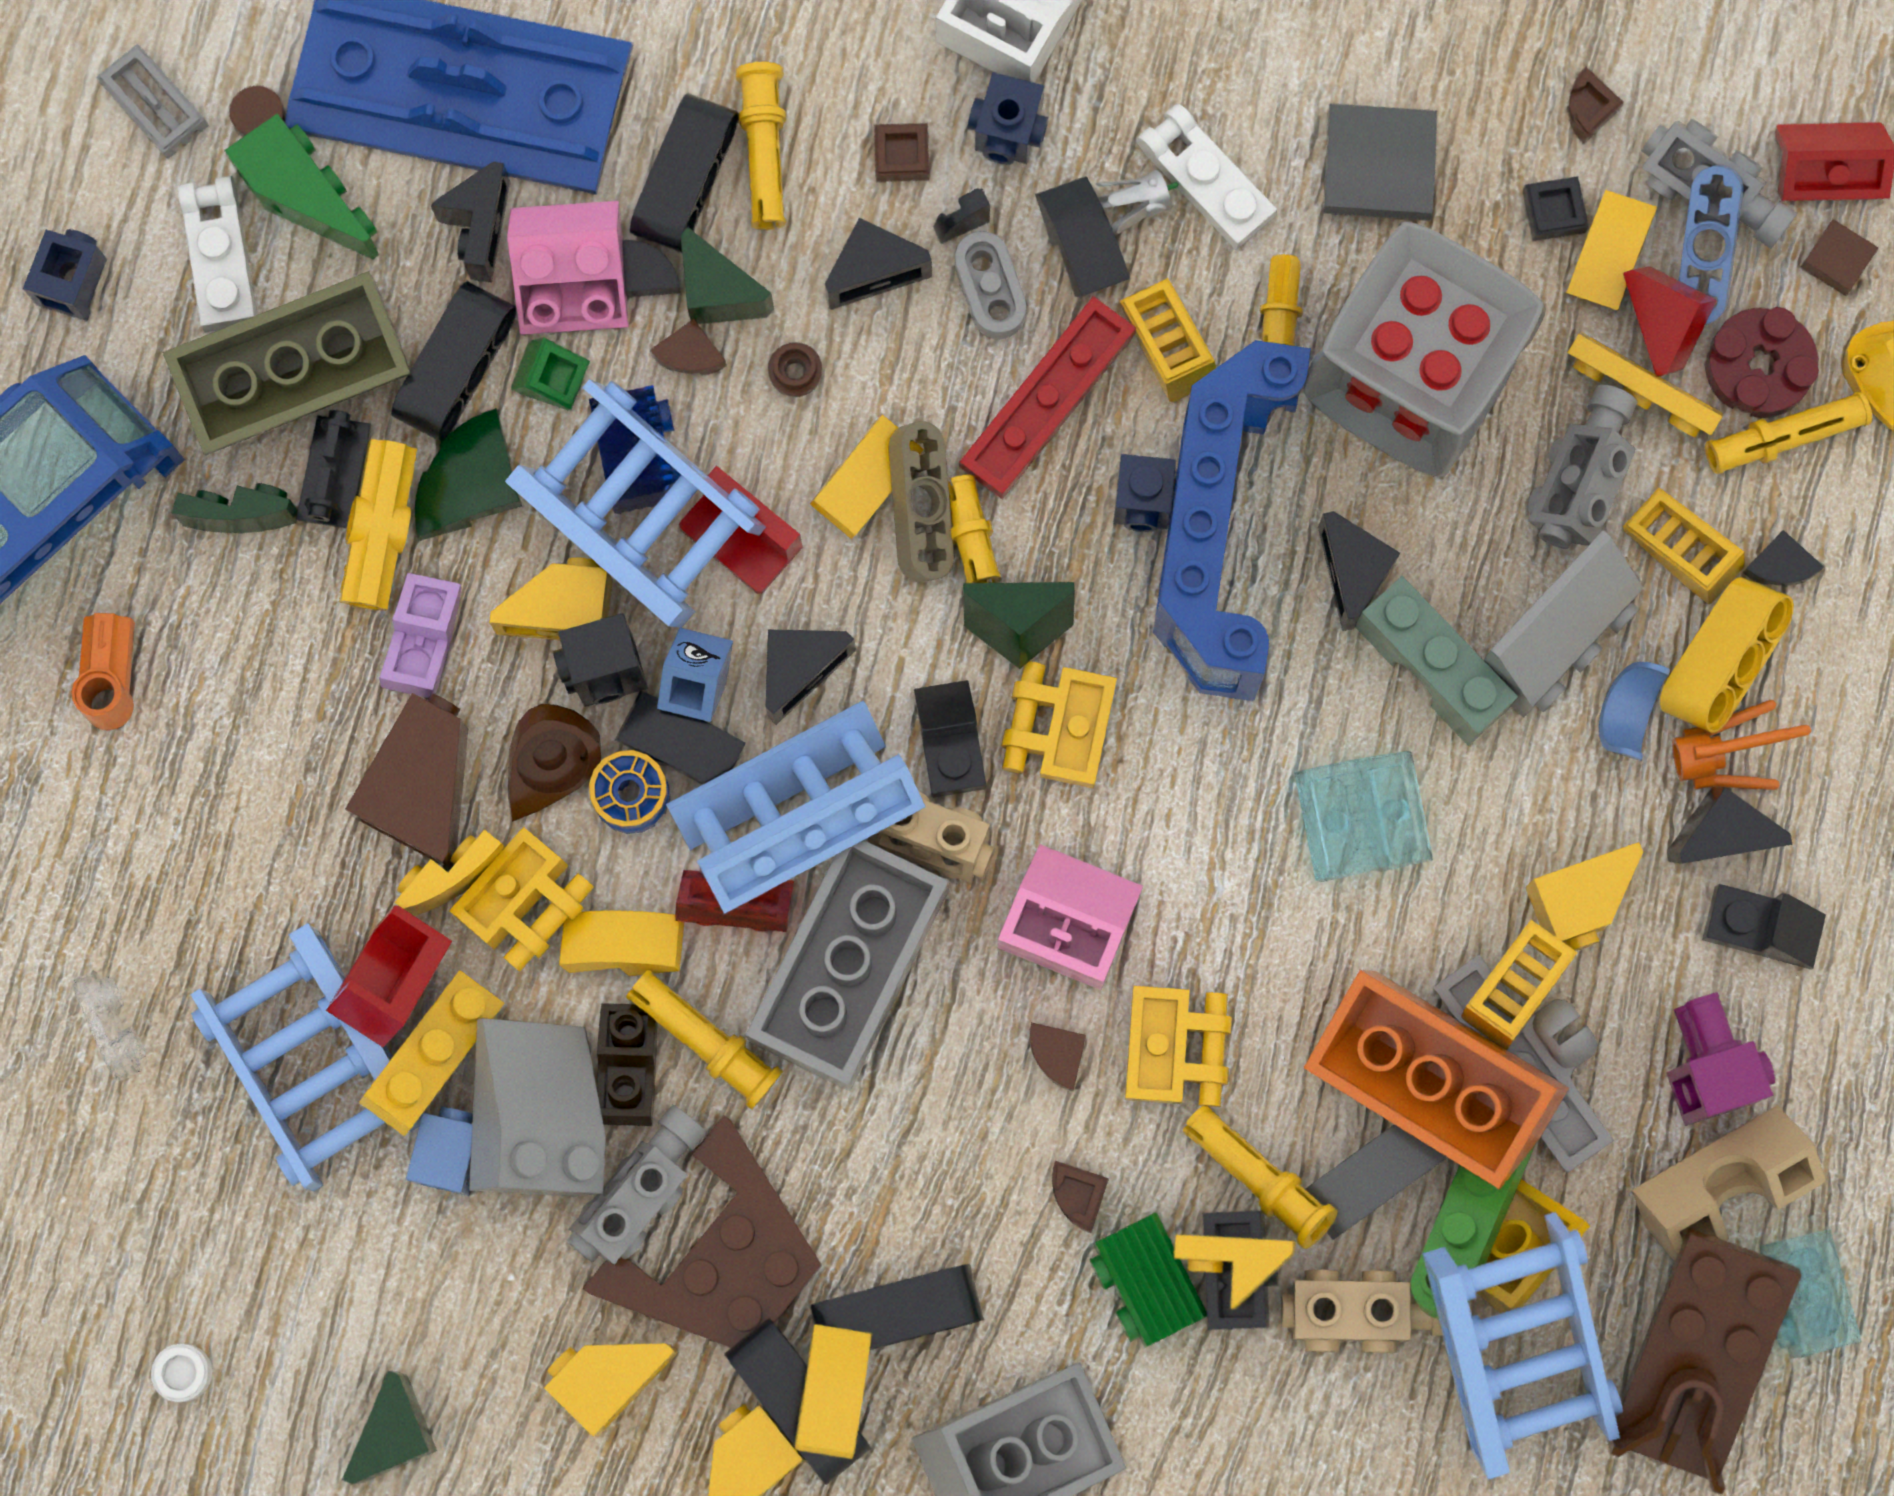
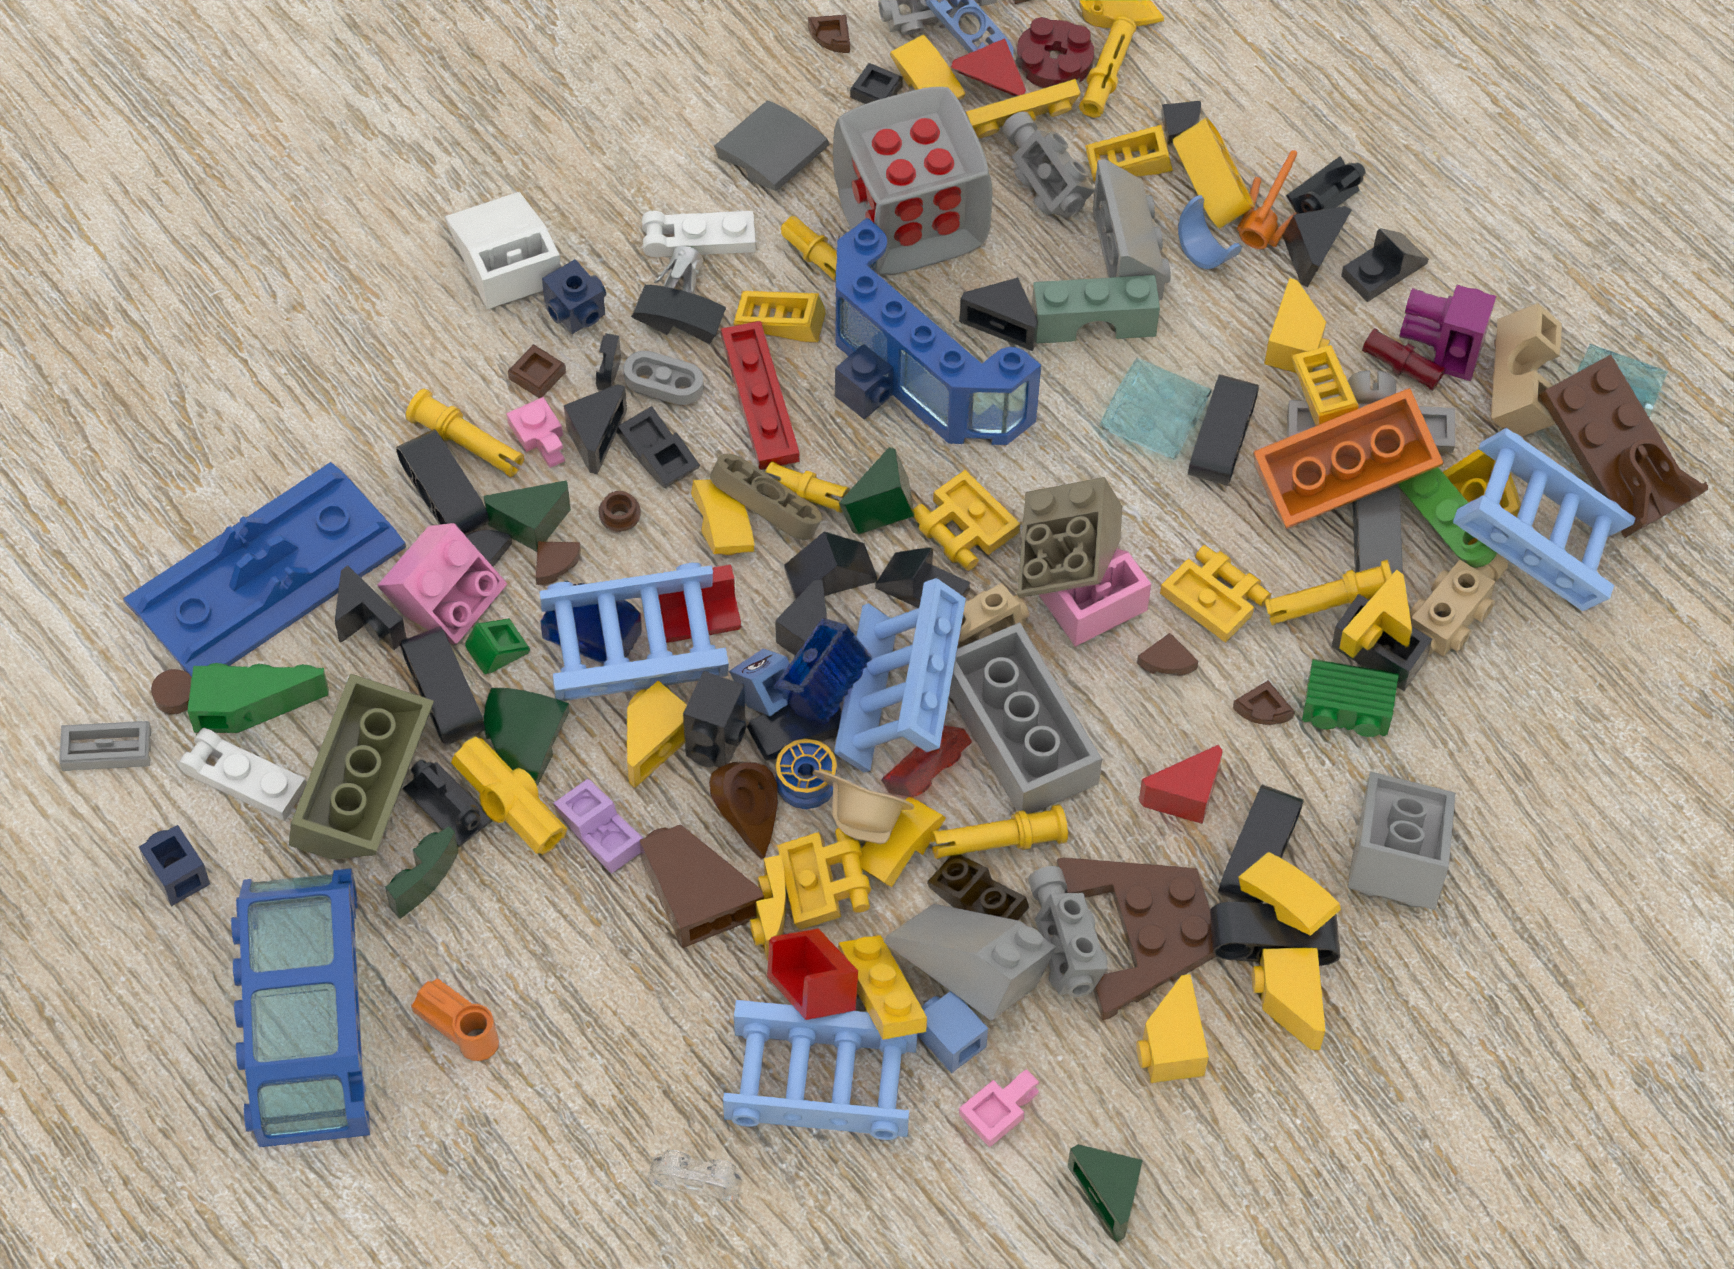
camera: 55 degrees left, 20 degrees down
(394, 1259) = (997, 1110): none -> bright pink plate
(609, 882) = (863, 812): none -> tan piece
(732, 727) = (823, 671): none -> clear blue brick
(830, 209) = (538, 427): none -> bright pink plate
(895, 631) = (835, 560): none -> black slope
(902, 346) = (656, 448): none -> black slope
(909, 1189) = (1183, 787): none -> red slope
(1093, 856) = (1068, 536): none -> dark tan slope
(1390, 908) = (1223, 429): none -> black beam
(1645, 1036) = (1403, 359): none -> dark red pin
(1807, 791) = (1327, 187): none -> black hinge

